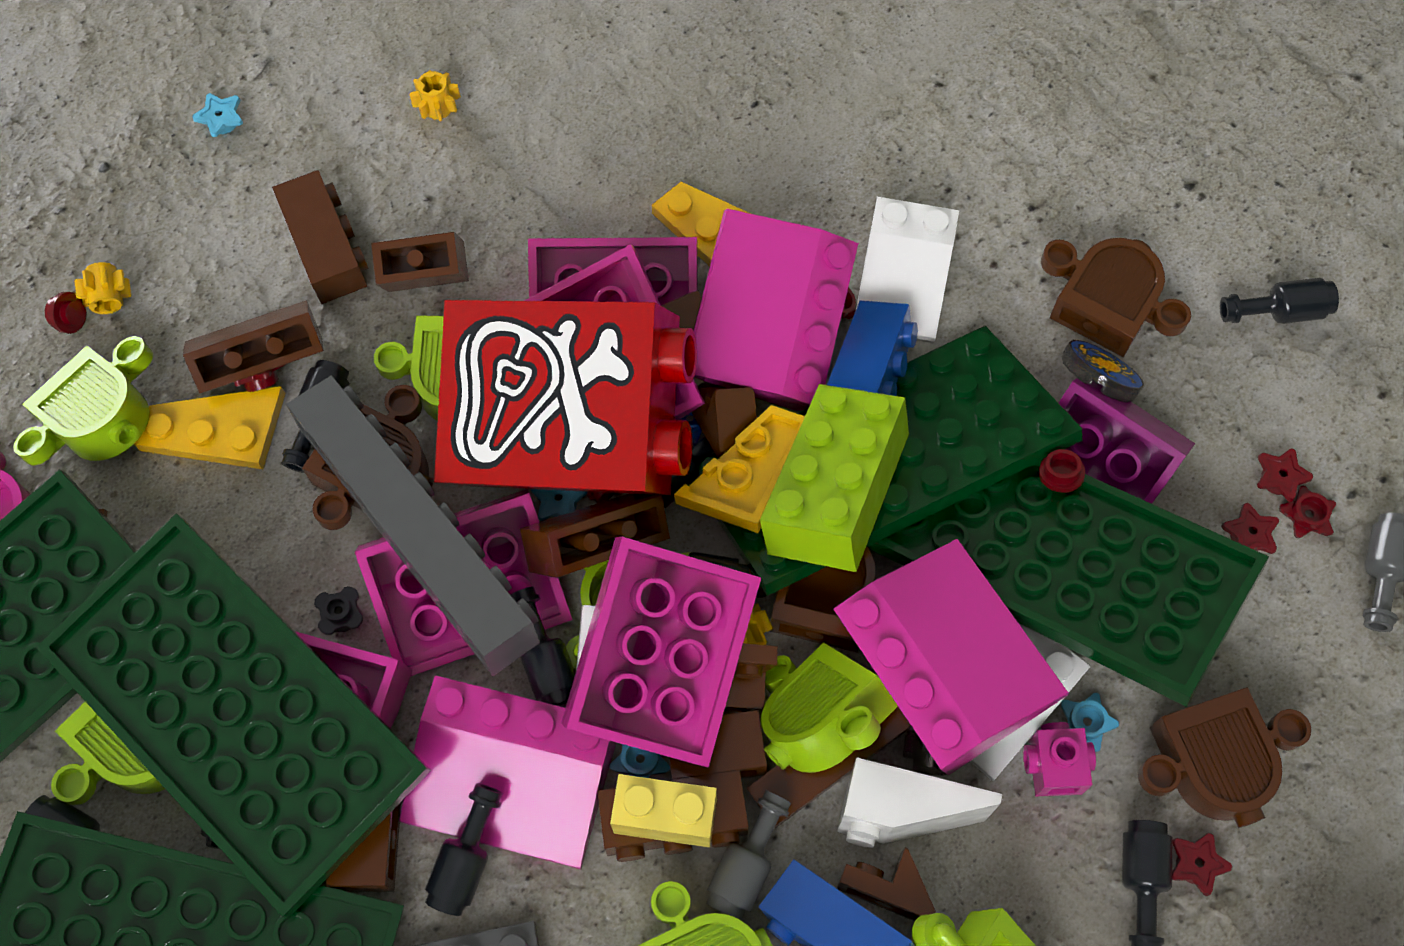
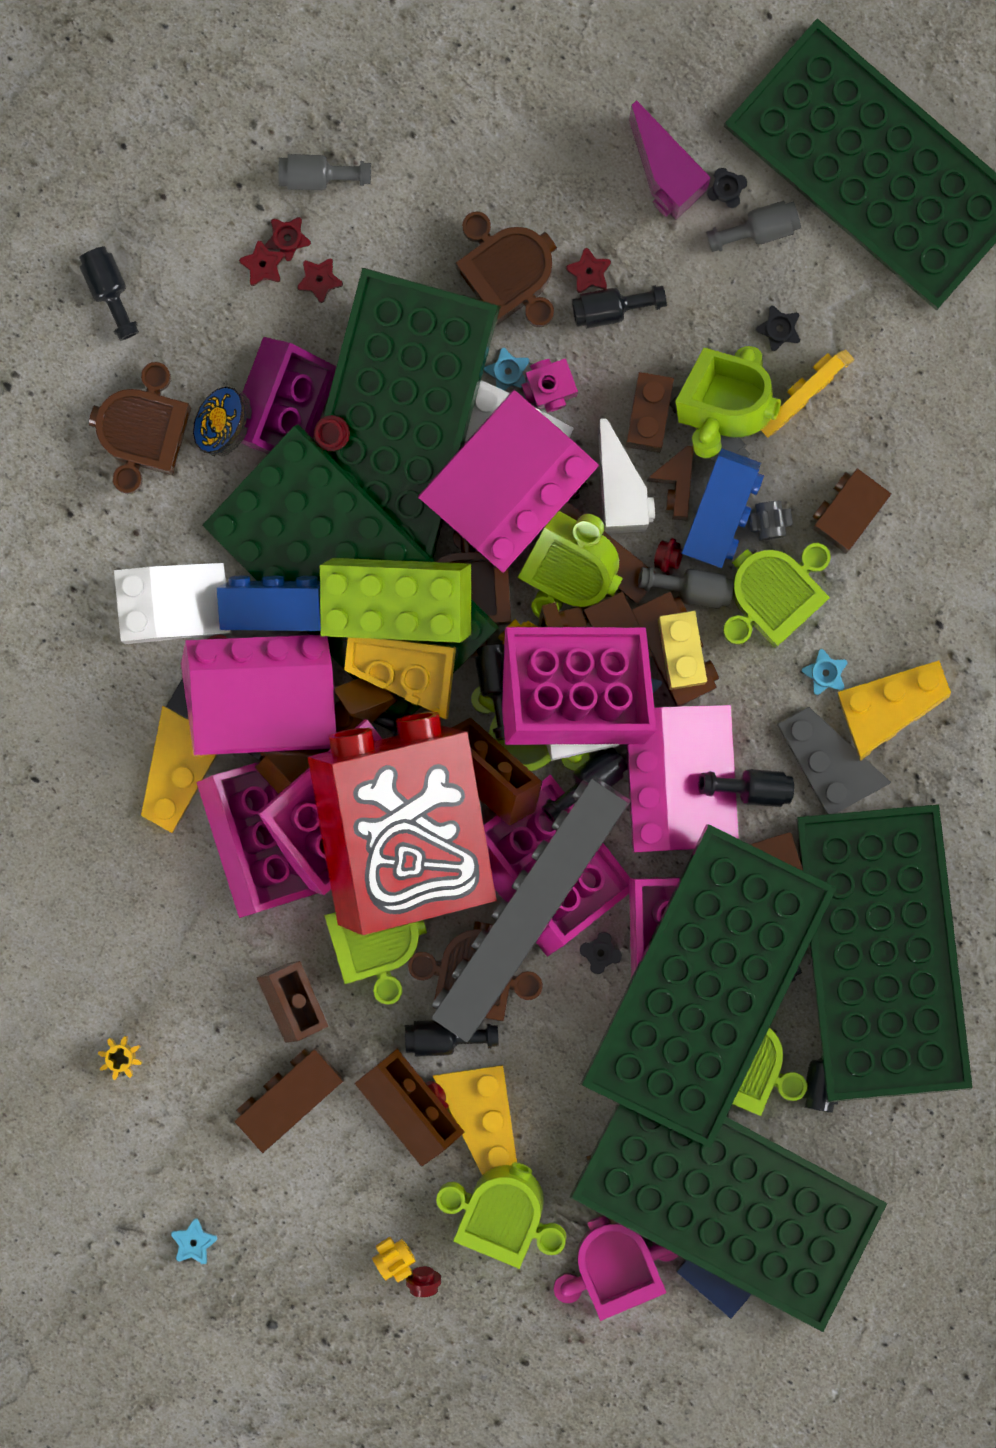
camera: 110 degrees left, 20 degrees up
(795, 843) = (668, 556): none -> dark red plate
(993, 878) = (649, 412): none -> reddish brown brick

